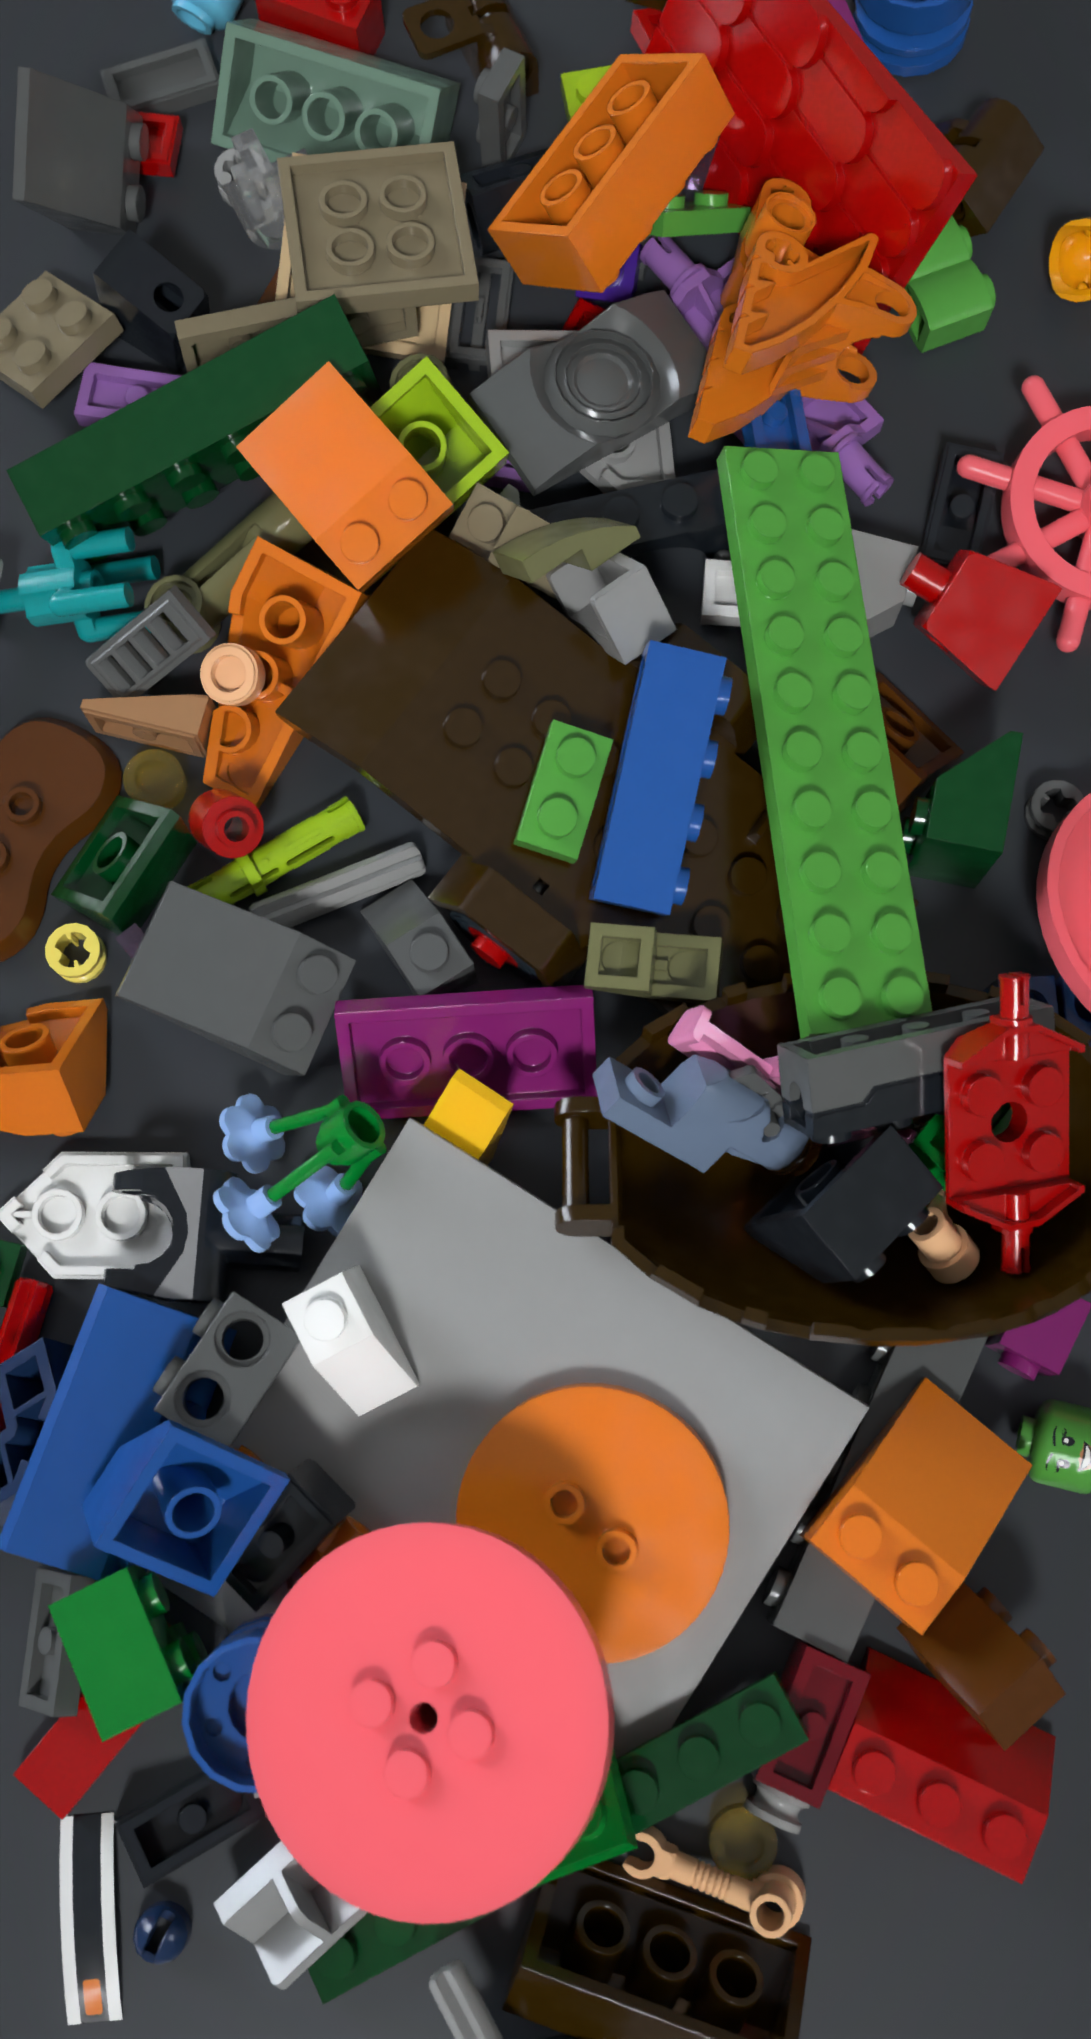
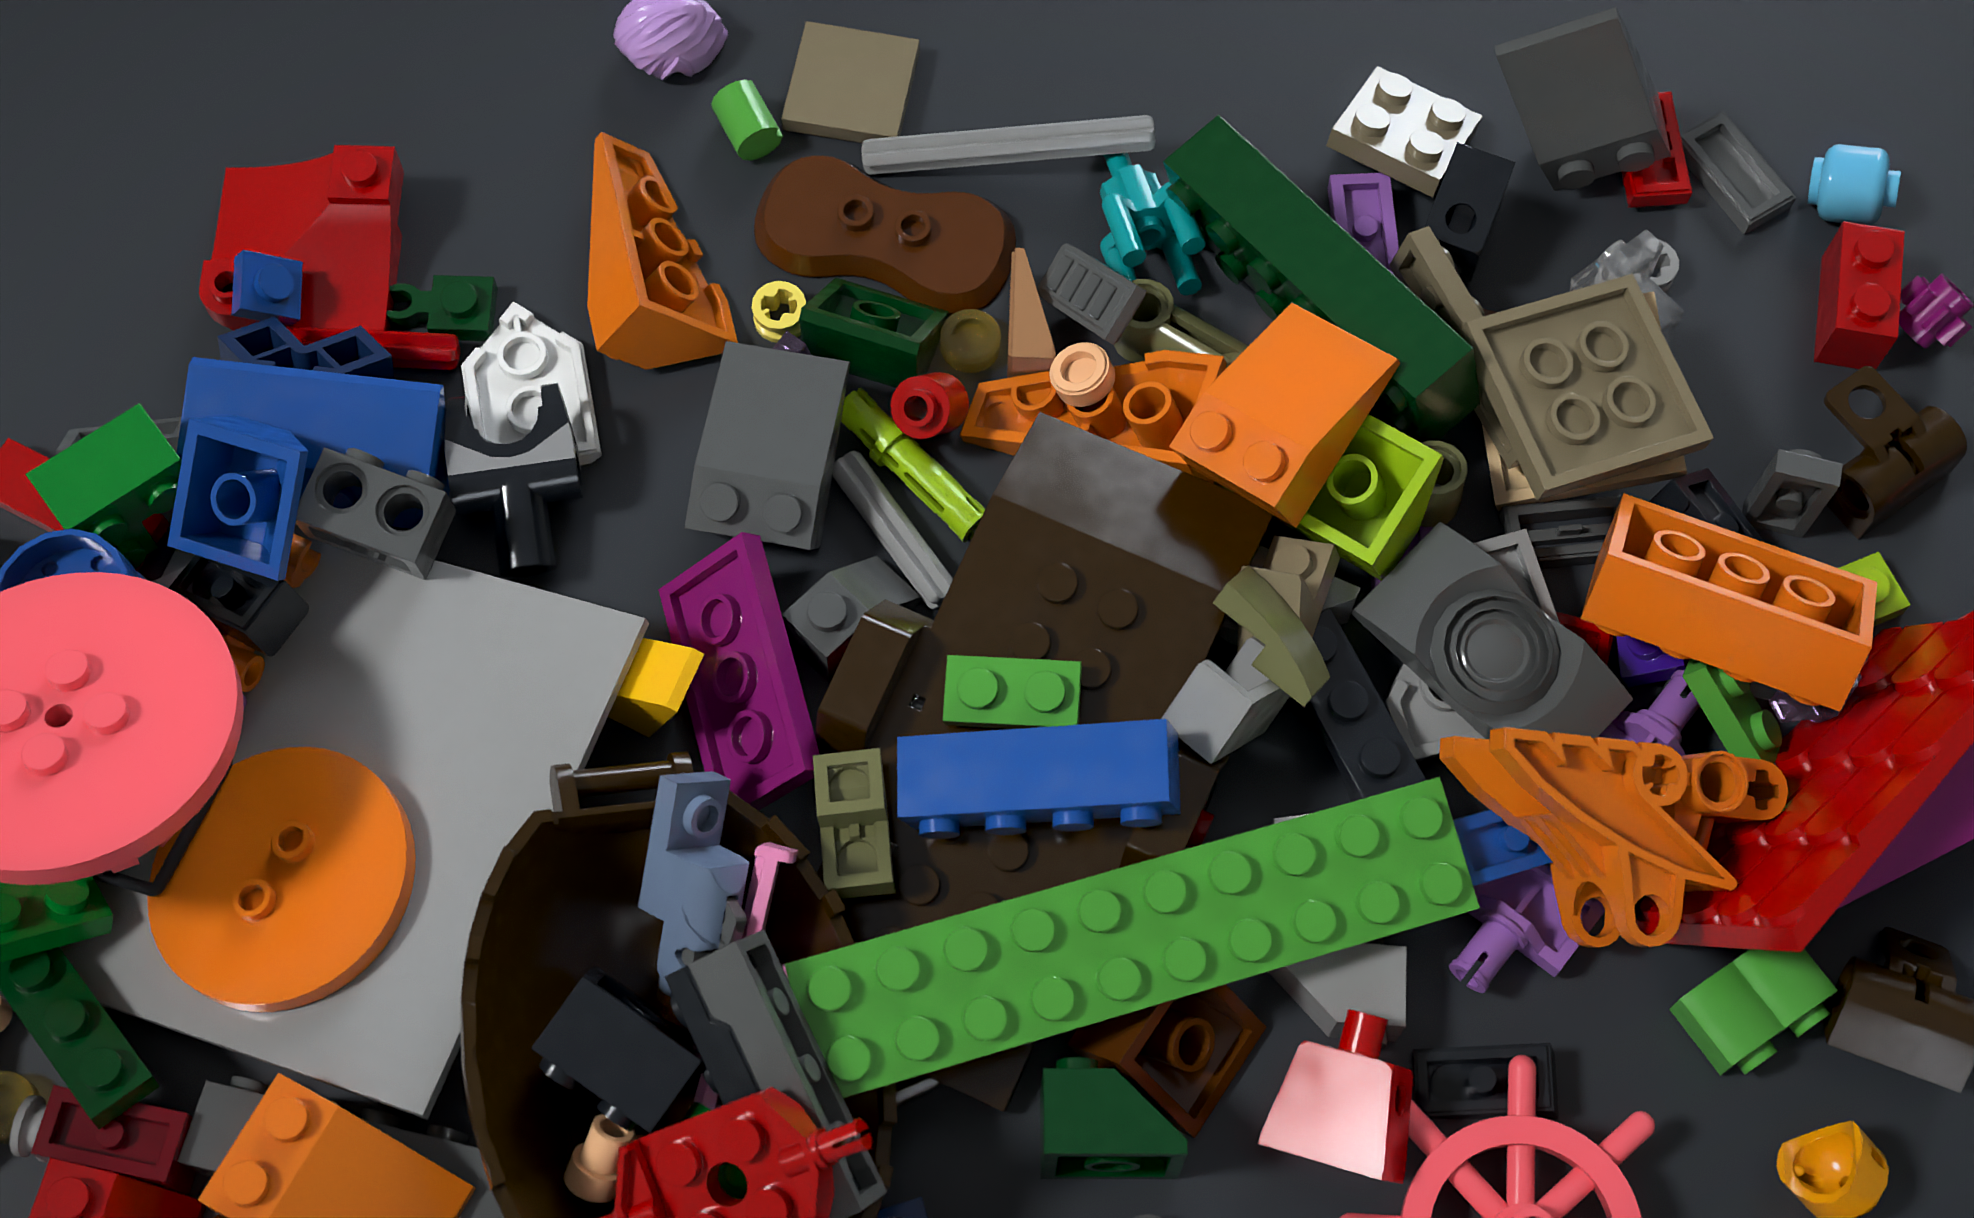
camera: 75 degrees right, 10 degrees down
(253, 1136) = (623, 504): light blue plant -> none
(323, 95) = (1755, 330): sand green slope -> none
(351, 1341) = (422, 613): white slope -> none

